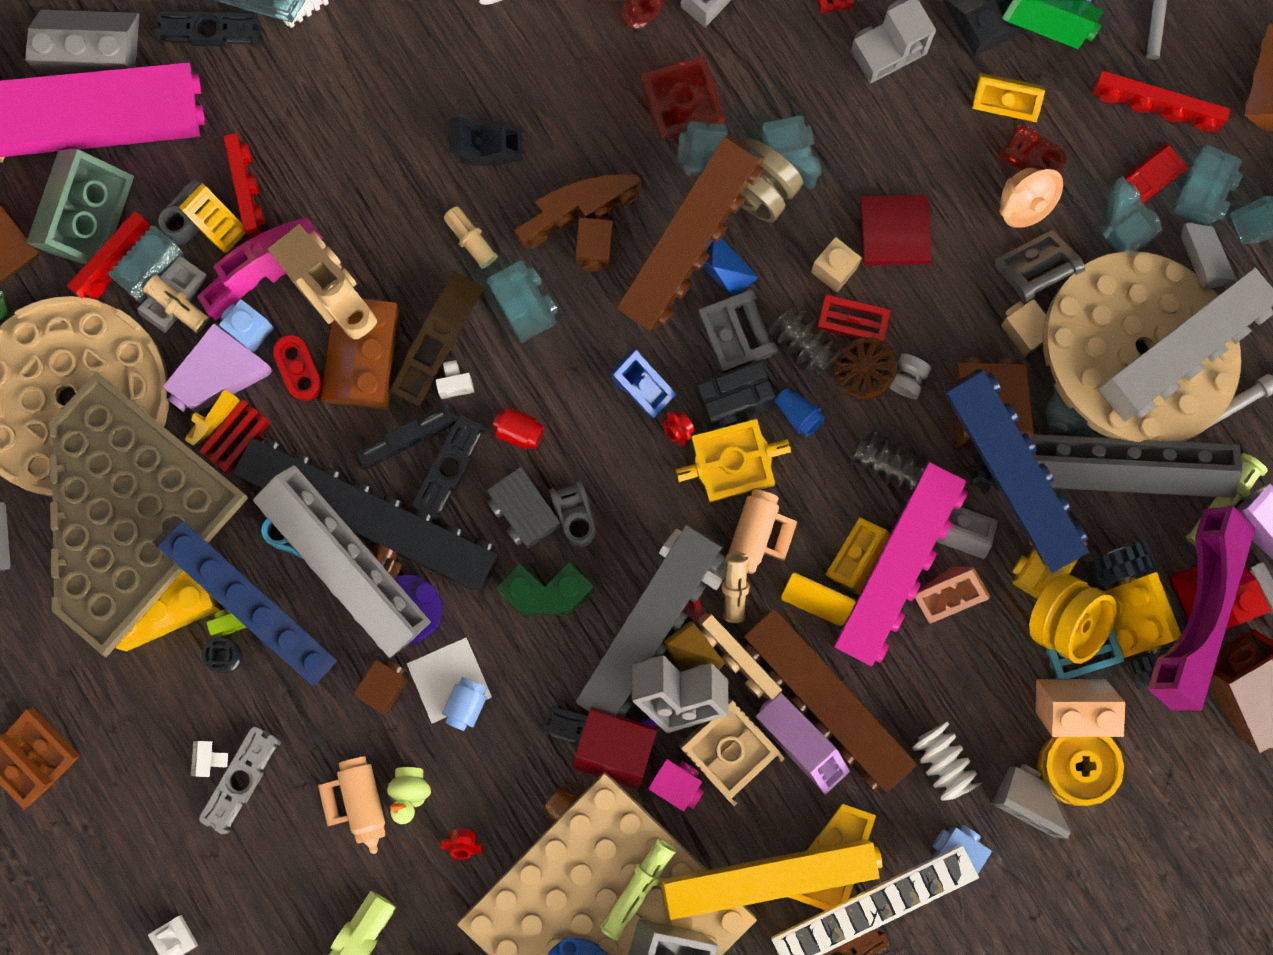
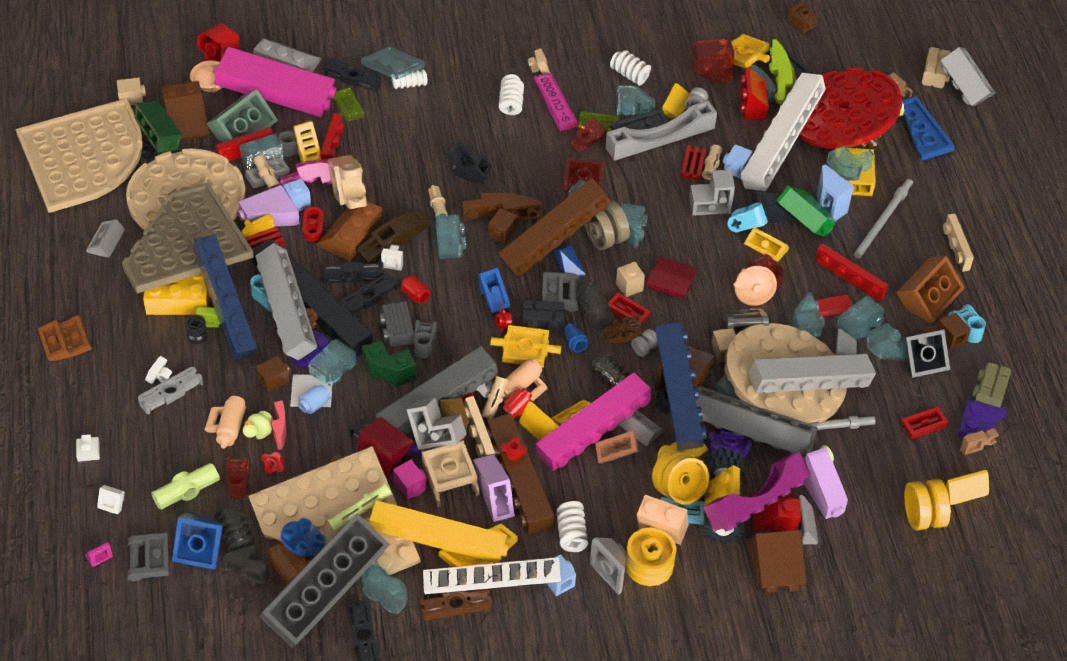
camera: 20 degrees right, 30 degrees down
(231, 93) = (348, 104): none -> clear neon green tile
(419, 889) = (237, 477): none -> clear red piece
(441, 783) = (279, 425): none -> coral slope
(460, 624) = (332, 362): none -> clear light blue brick
(771, 577) = (517, 402): none -> brick
(814, 688) = (514, 454): none -> red plate
(968, 65) = (750, 217): none -> medium azure piece
(1109, 532) = (728, 440): none -> dark purple plate

